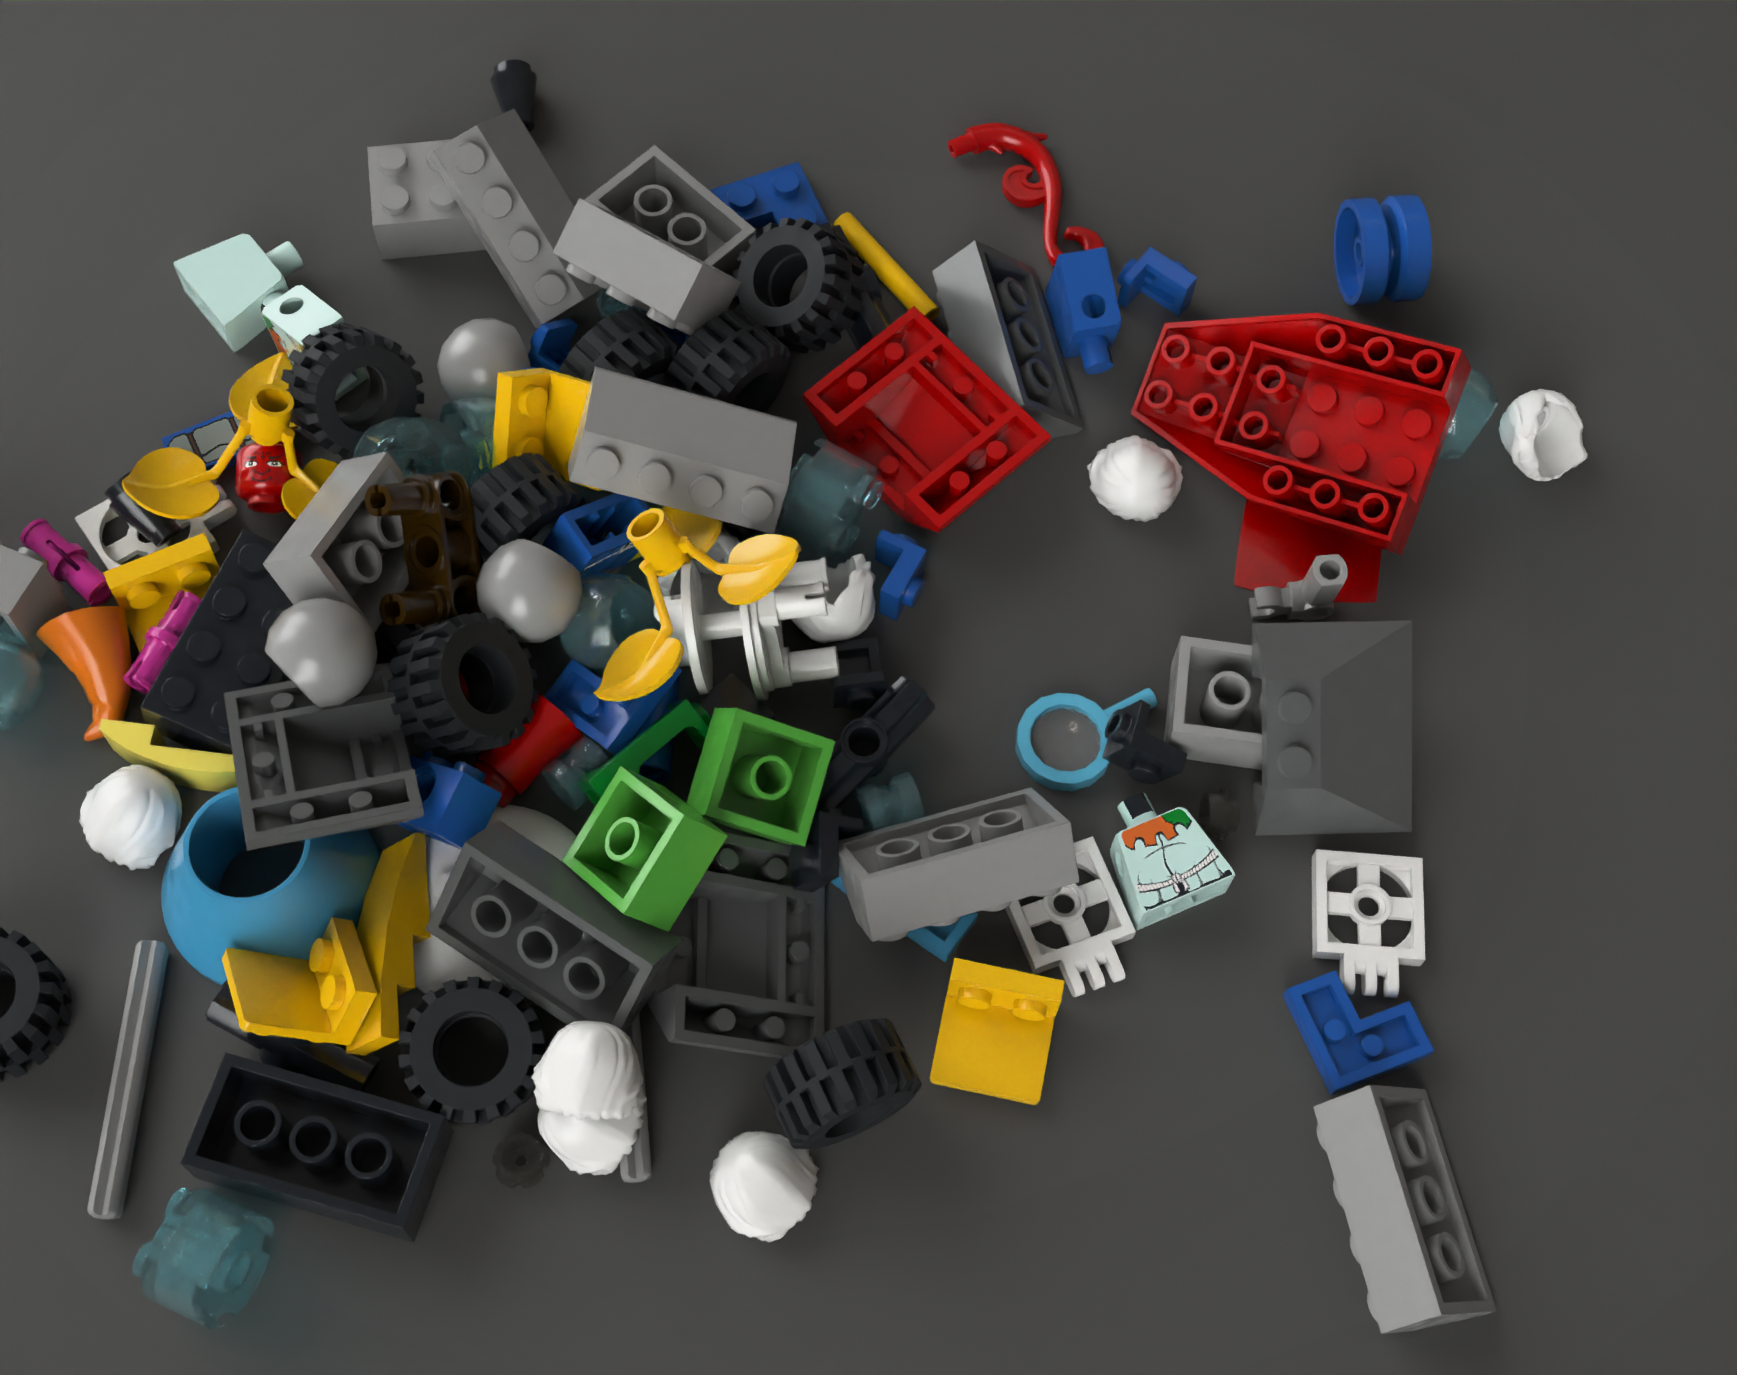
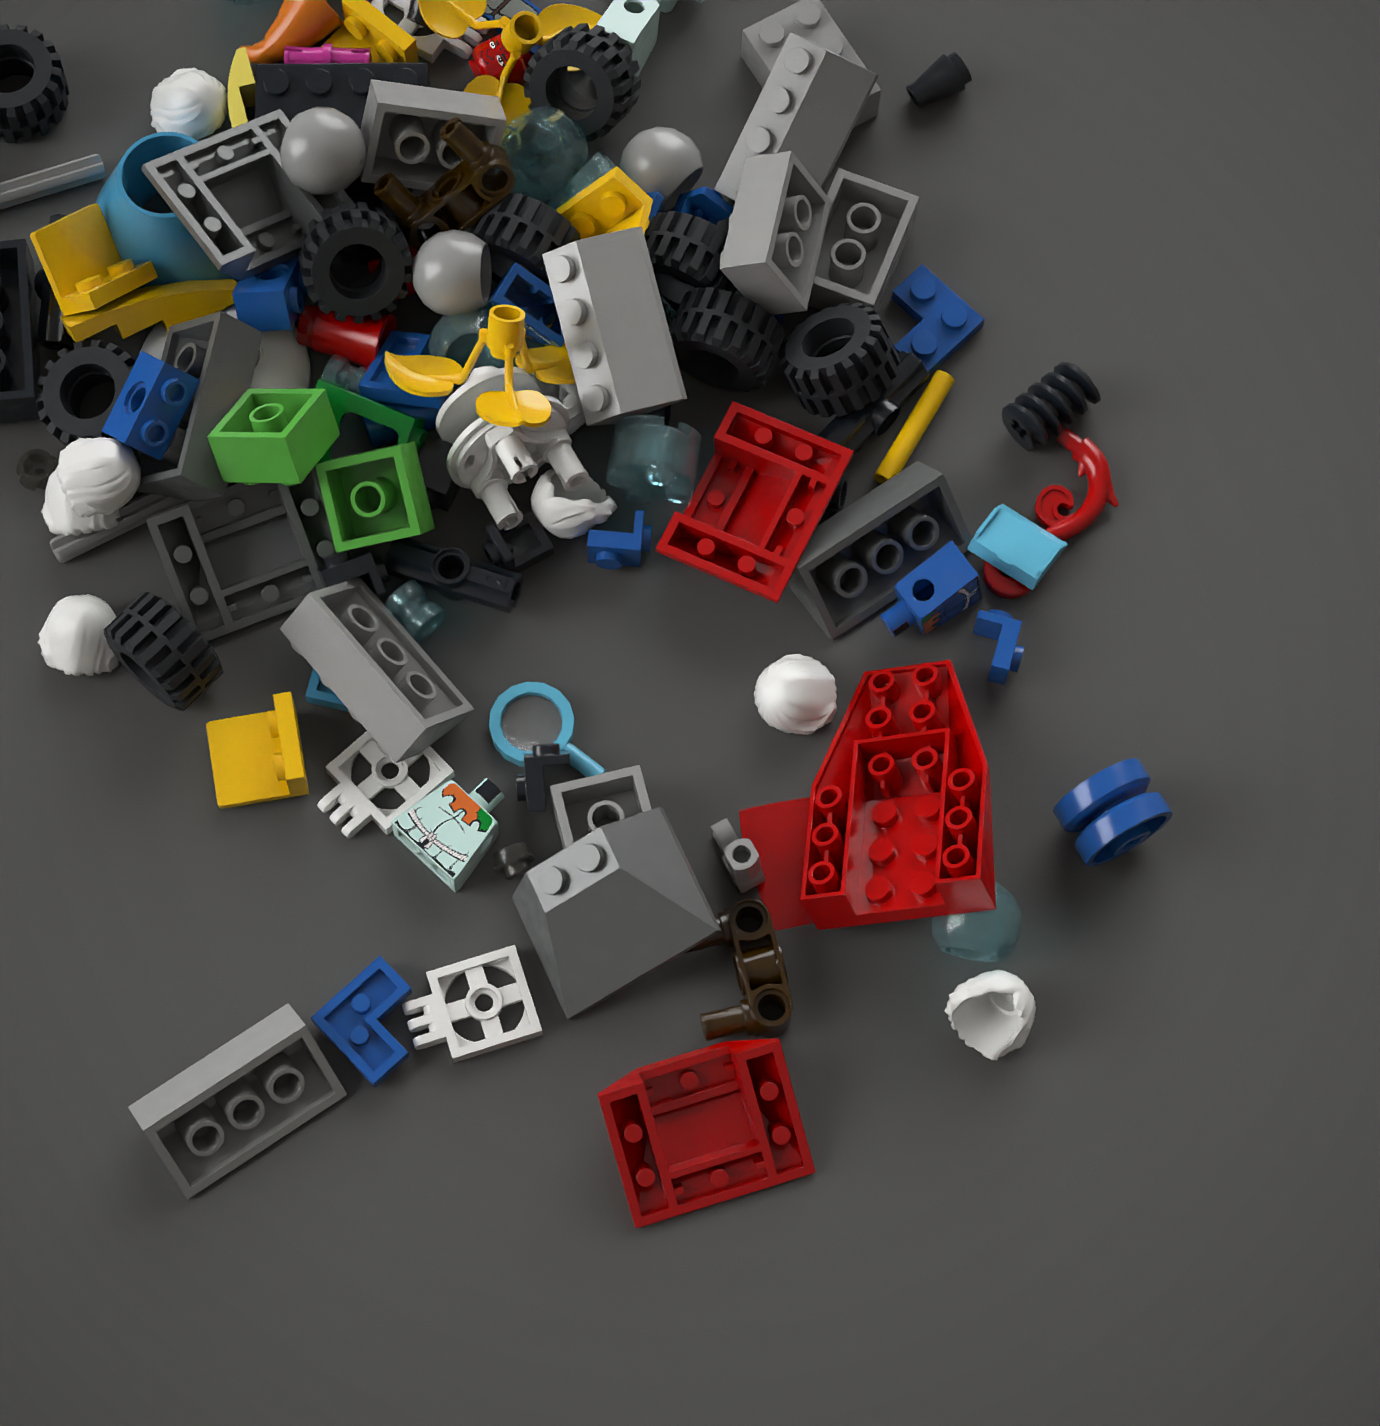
camera: 70 degrees right, 5 degrees up
(538, 999) = (151, 405): none -> blue brick
(923, 141) = (1047, 402): none -> black piece
(1057, 227) = (1016, 546): none -> medium azure piece
(1442, 631) = (758, 971): none -> dark brown piece
(1580, 734) = (705, 1128): none -> red slope

